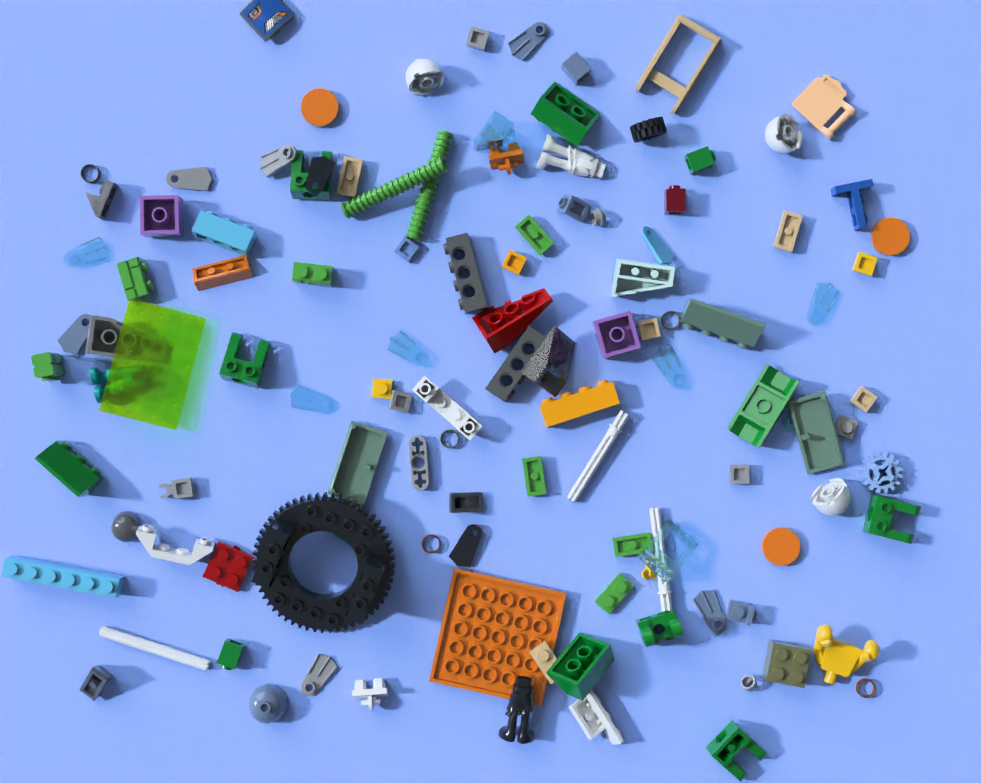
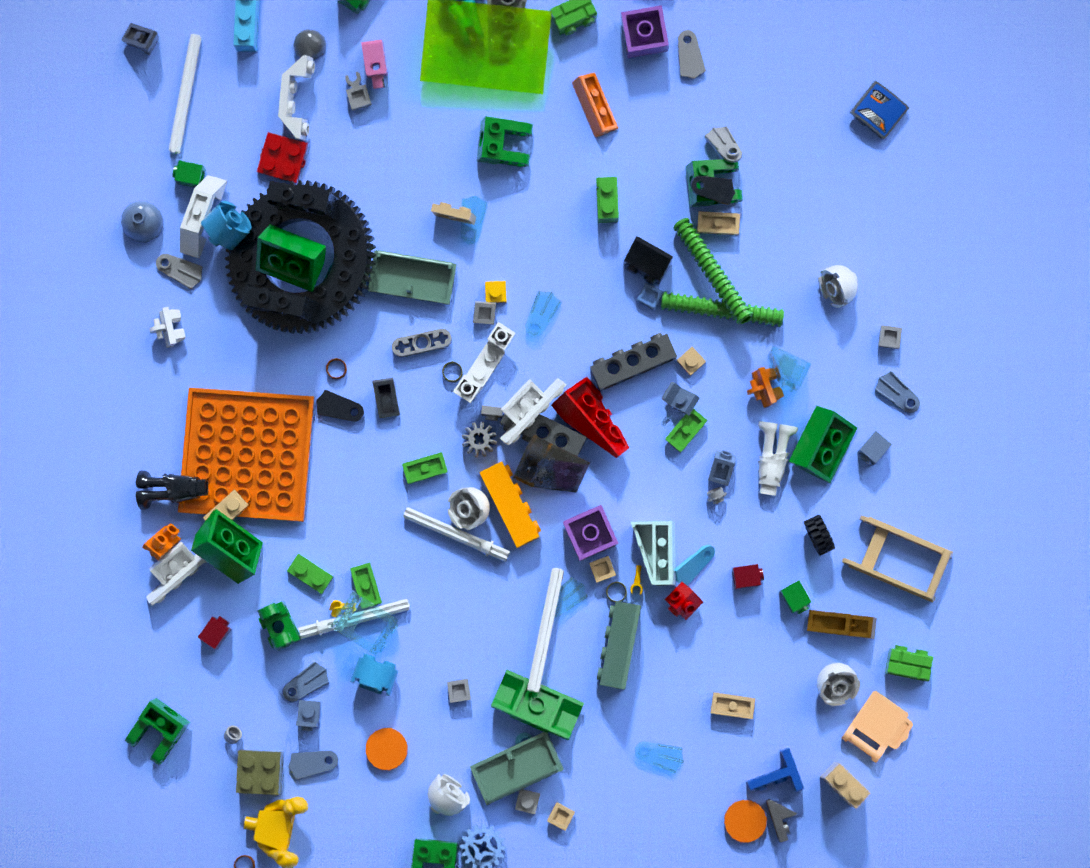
camera: 90 degrees right, 5 degrees down
(143, 468) = (375, 53): none -> bright pink torso
(224, 233) = (637, 99): medium azure brick -> none
(268, 651) = (198, 208): none -> white slope
(285, 627) = (226, 225): none -> dark azure brick
(301, 423) = (446, 211): none -> tan plate
(319, 107) = (788, 180): orange tile -> none
(324, 572) = (290, 257): none -> green slope
(375, 245) = (647, 261): none -> black slope
(472, 221) = (691, 361): none -> tan plate
(493, 374) = (527, 405): none -> white bracket
(493, 407) = (491, 413): none -> light grey plate
(505, 235) = (680, 398): none -> sand blue bracket
(514, 262) = (653, 412): light orange plate -> none
(515, 430) = (481, 447): none -> light grey gear
(566, 724) = (162, 541): none -> orange hips
(577, 441) = (468, 508): none -> white cylinder
(655, 686) = (215, 632): none -> dark red brick
(664, 300) = (637, 580): none -> yellow hand
(689, 261) = (683, 601): none -> red brick
(697, 388) = (545, 630): none -> white axle
(716, 548) = (374, 675): none -> dark azure brick
(729, 123) = (841, 624): none -> pearl gold slope
(774, 68) = (909, 664): none -> bright green brick
(783, 615) = (311, 763): none -> sand blue piece
(864, 264) = (710, 796): yellow plate -> none
(875, 141) = (845, 785): none -> tan brick
(889, 204) = (778, 813): none -> flat silver slope

